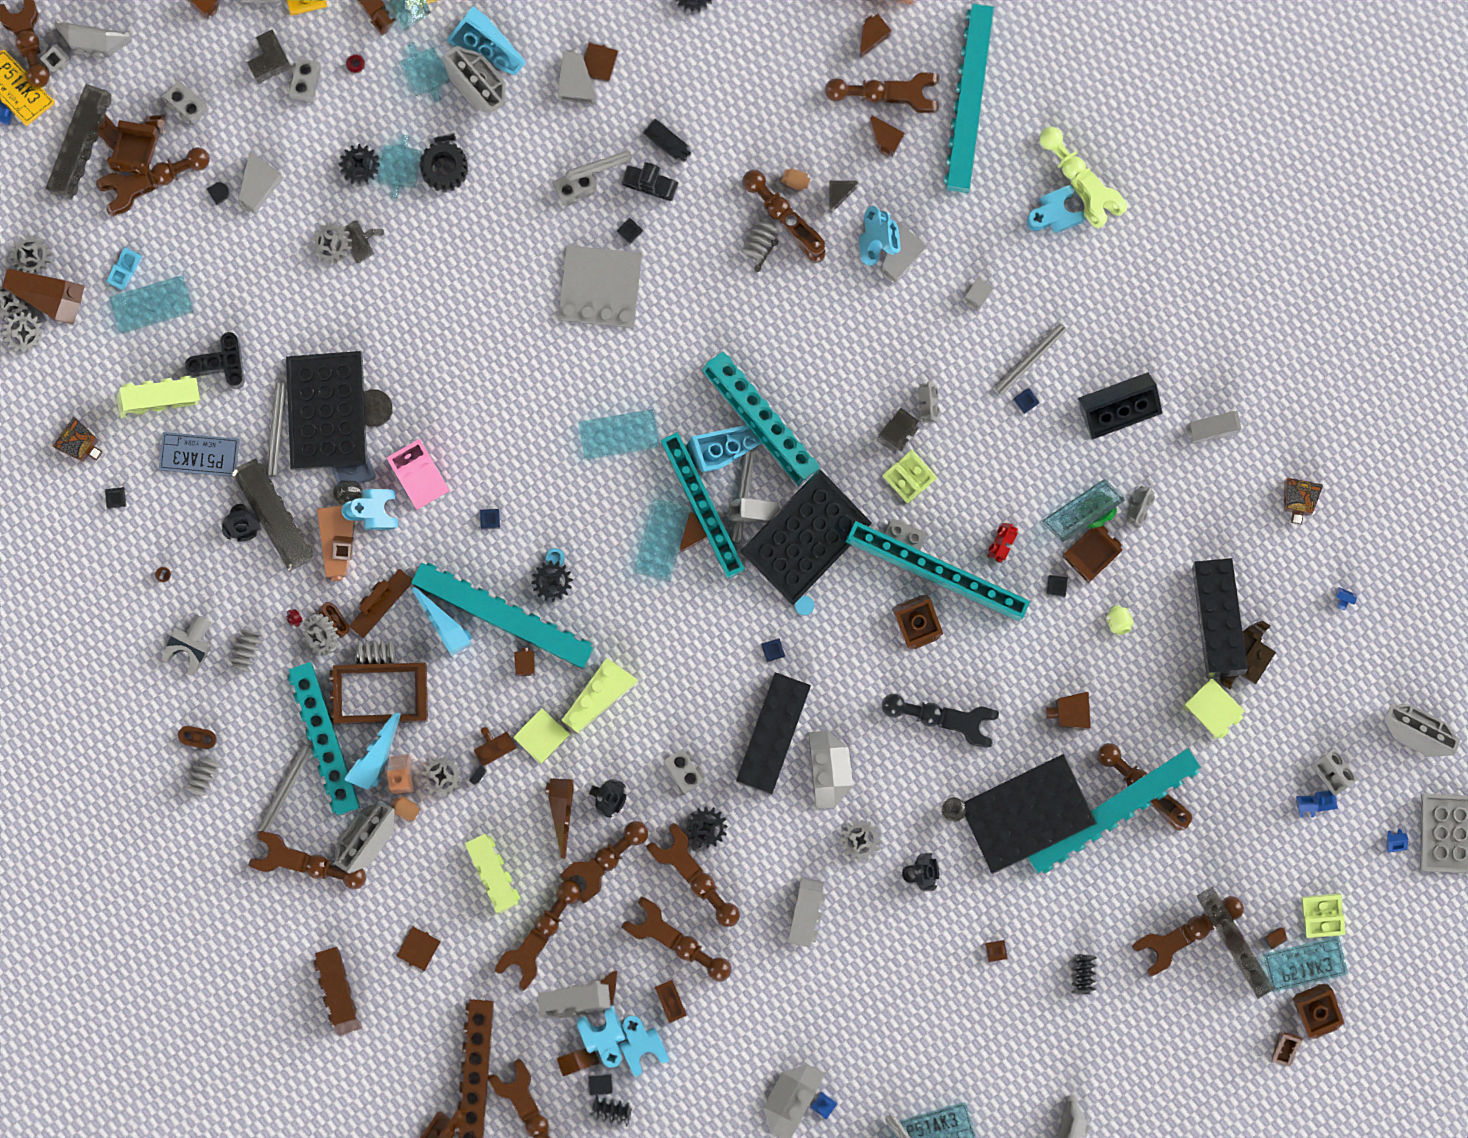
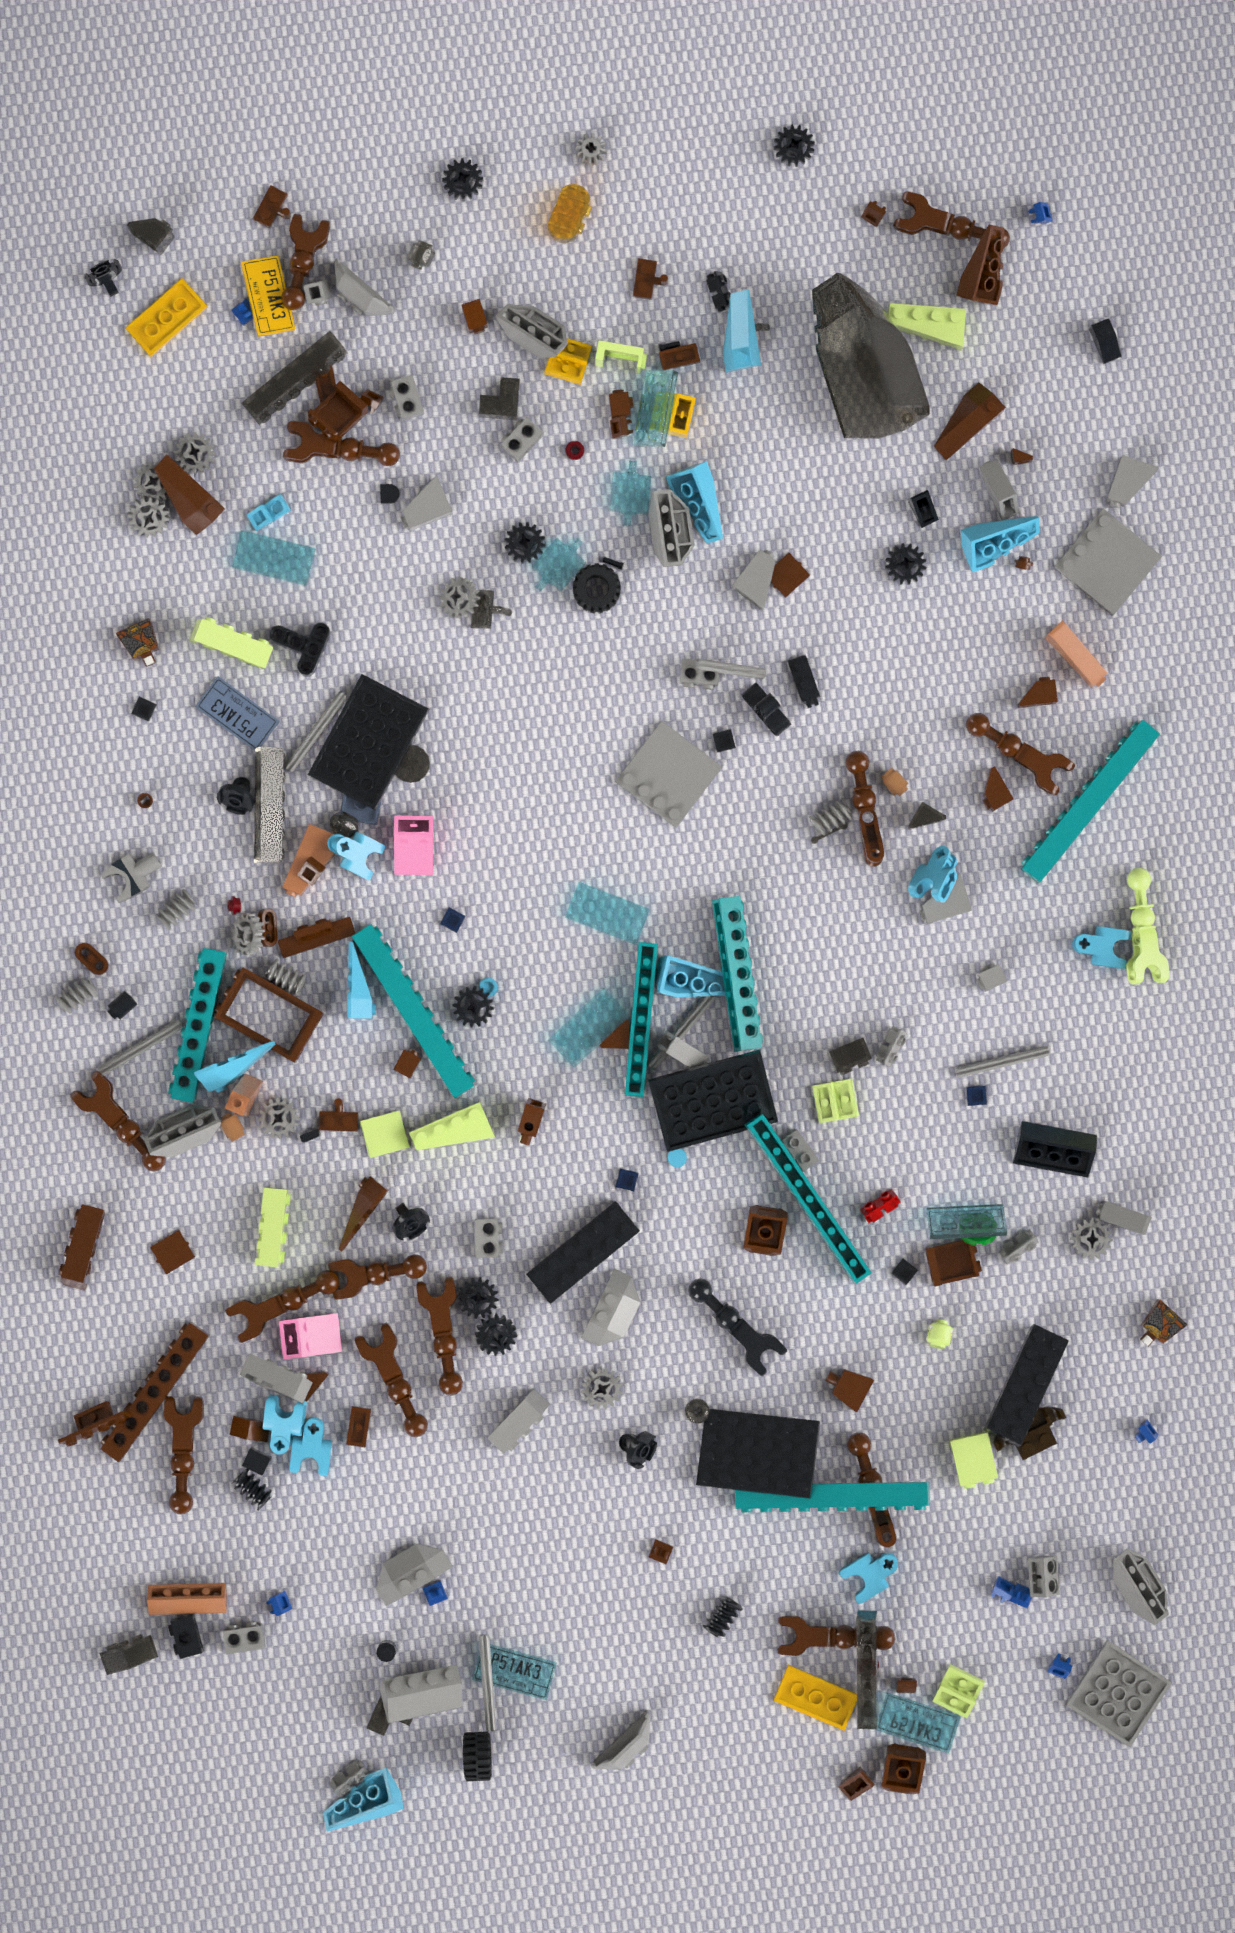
camera: 30 degrees right, 5 degrees up
(247, 762) = (121, 1005): none -> black brick
(581, 947) = (310, 1336): none -> bright pink slope
(659, 639) = (532, 1113): none -> reddish brown torso
(746, 844) = (503, 1331): none -> black gear
(1188, 858) = (872, 1572): none -> medium azure piece
(1193, 456) = (1099, 1239): none -> light grey gear
(1205, 995) = (816, 1697): none -> yellow tile

